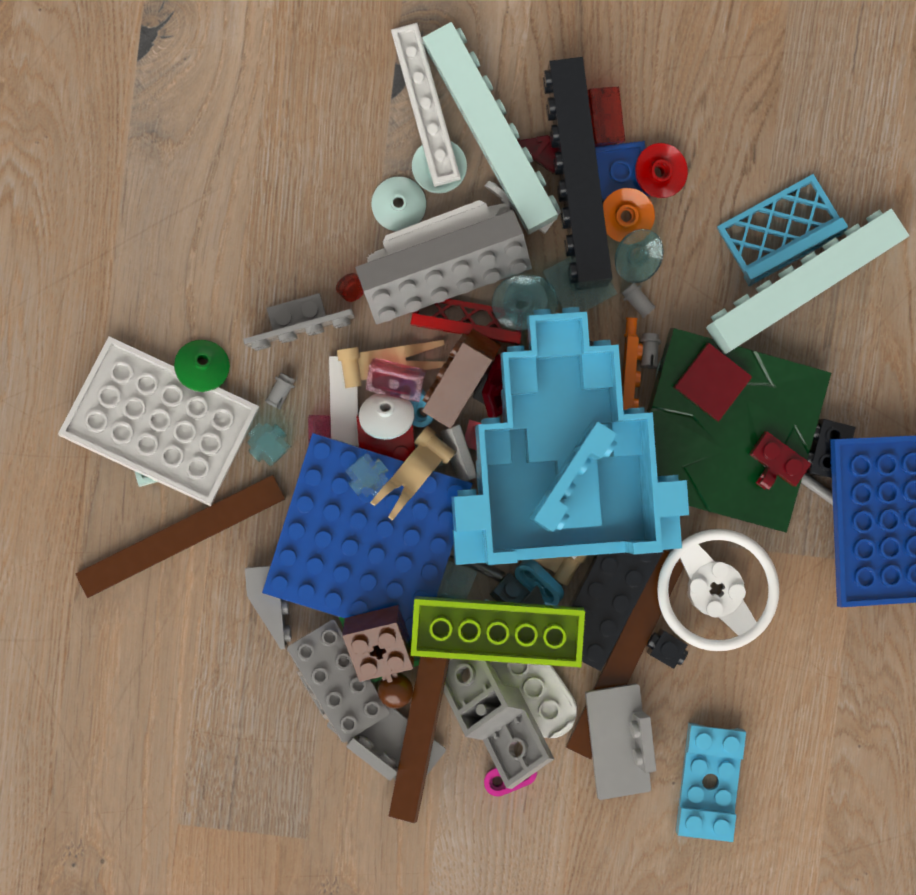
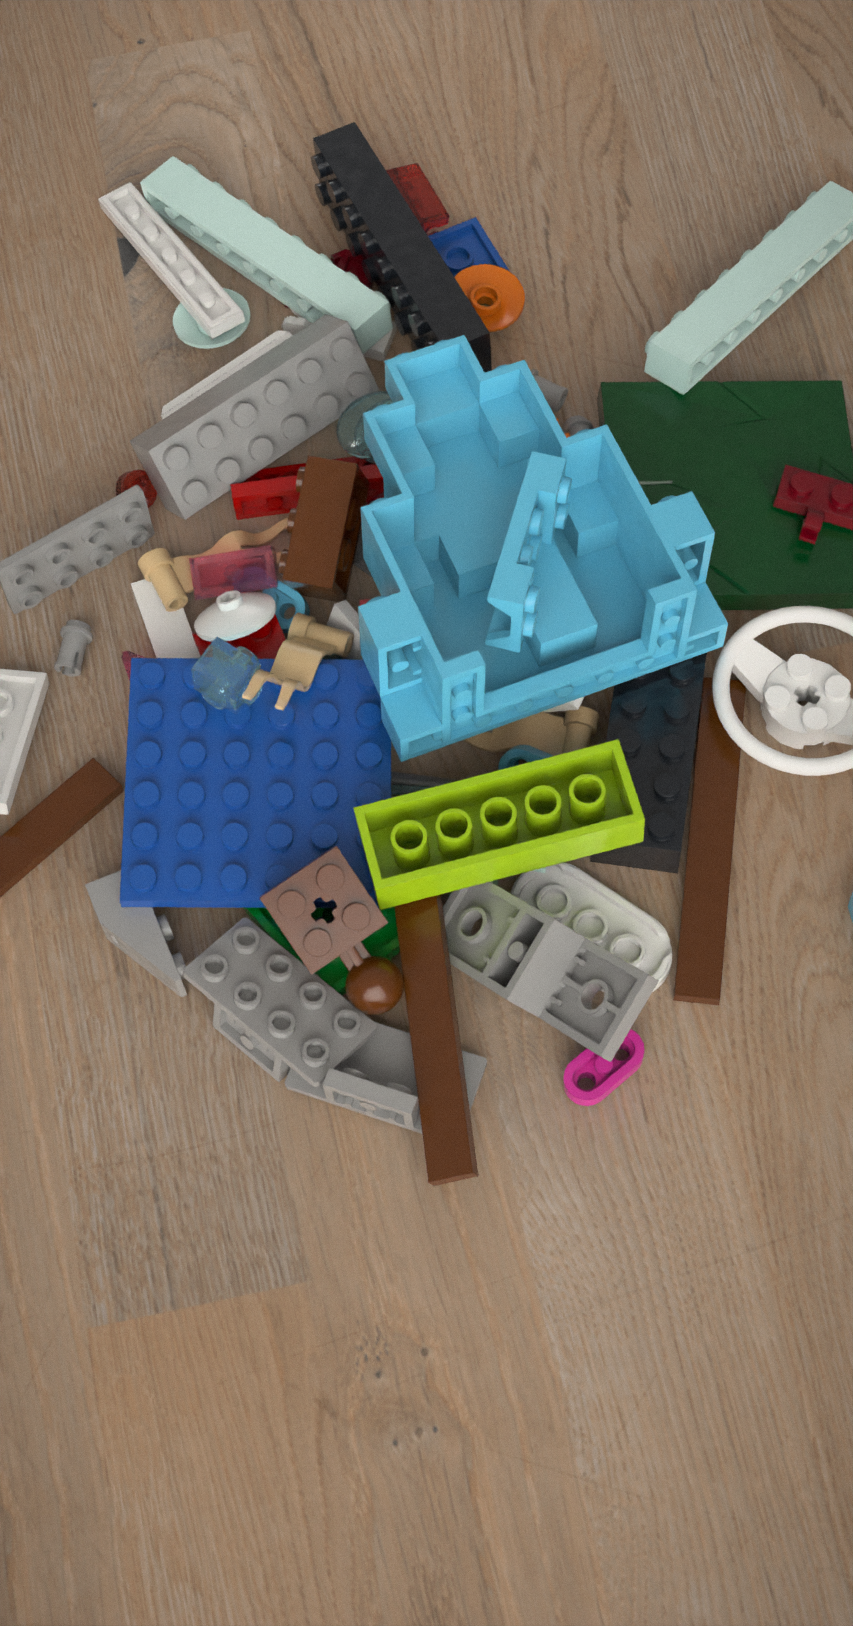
camera: 15 degrees left, 25 degrees down
(268, 443) = (75, 717): clear light blue brick -> none
(405, 216) = (154, 389): light aqua dish -> none
(620, 741) = (756, 953): light grey bracket -> none
(646, 260) = (528, 326): clear light blue dish -> none
(667, 648) = (768, 801): black brick -> none
(672, 167) = (510, 236): red dish -> none
(712, 382) = (681, 427): dark red tile -> none
(798, 246) = (715, 264): medium azure fence -> none

